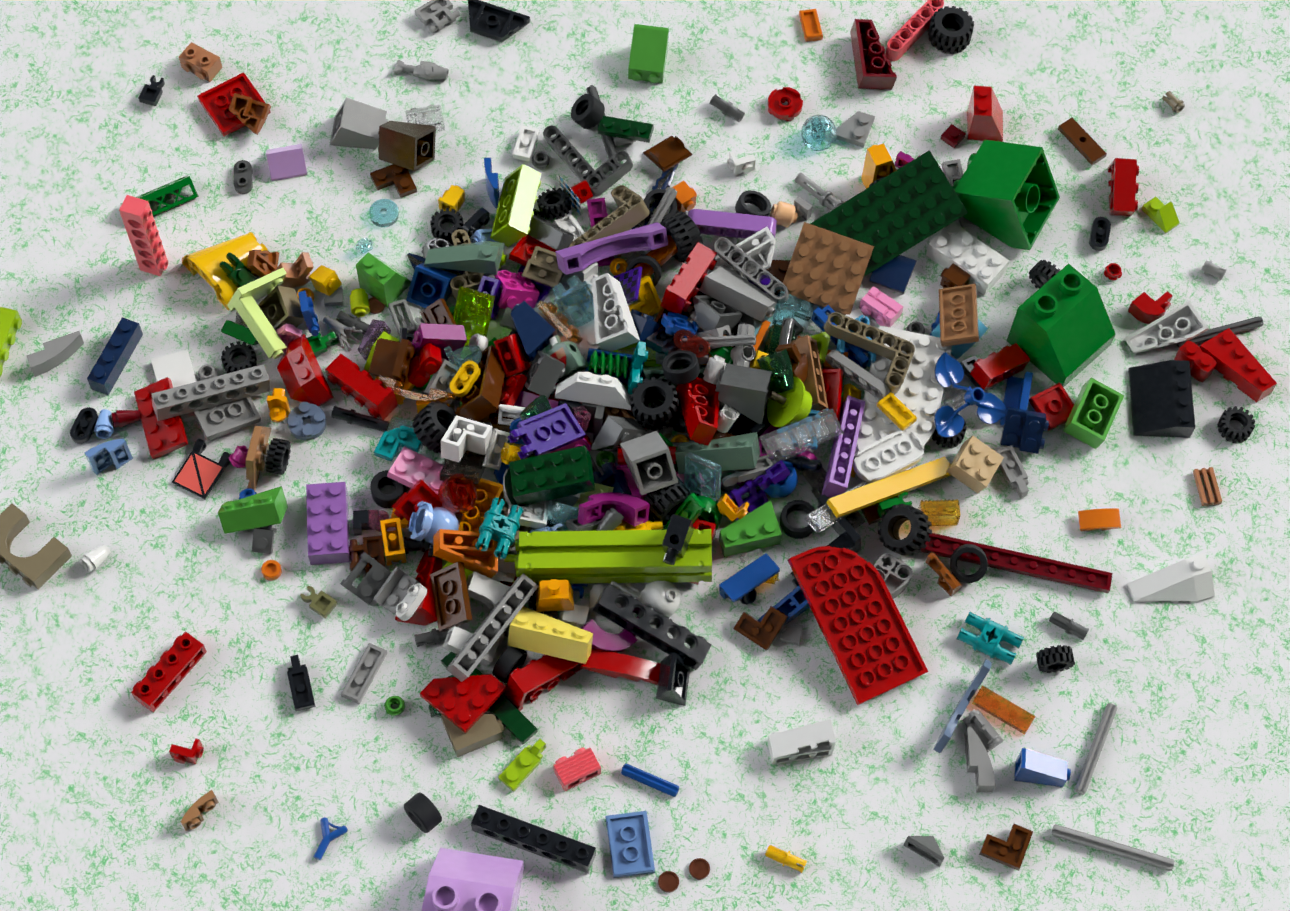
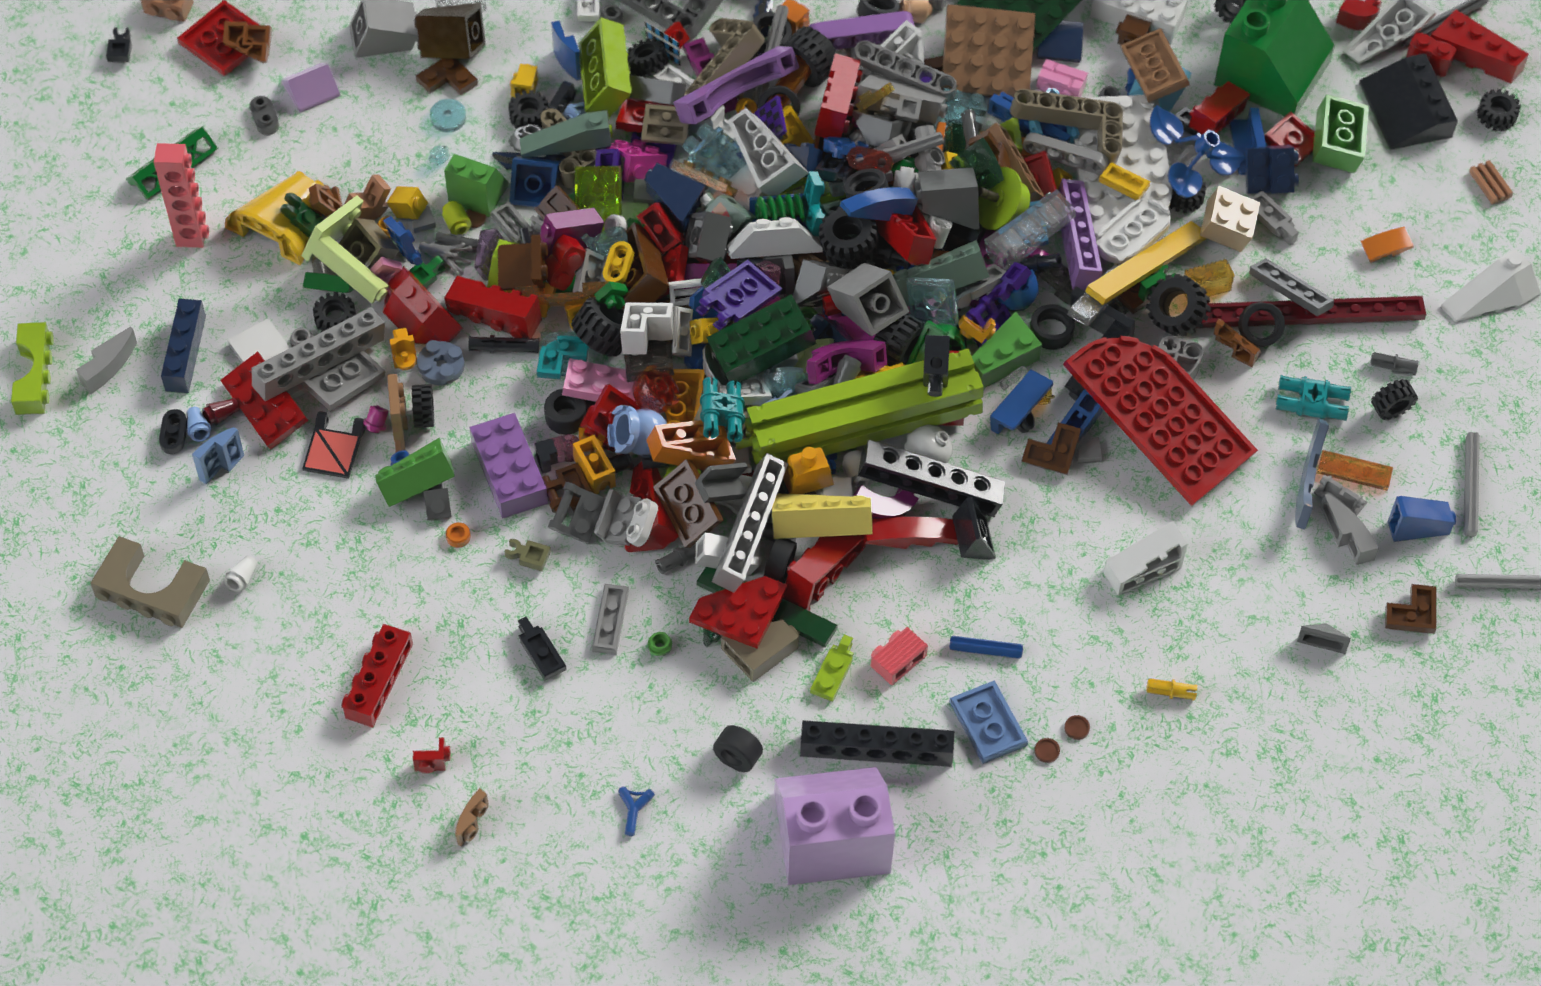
camera: 15 degrees left, 5 degrees down
(451, 403) = (612, 295): none -> green tile
(479, 589) = (721, 483): none -> dark grey panel
(684, 384) = (880, 203): none -> blue slope
(710, 289) = (869, 98): none -> clear yellow plate
(738, 304) = (906, 107): none -> light grey plate
(1005, 537) = (1291, 287): none -> dark grey plate

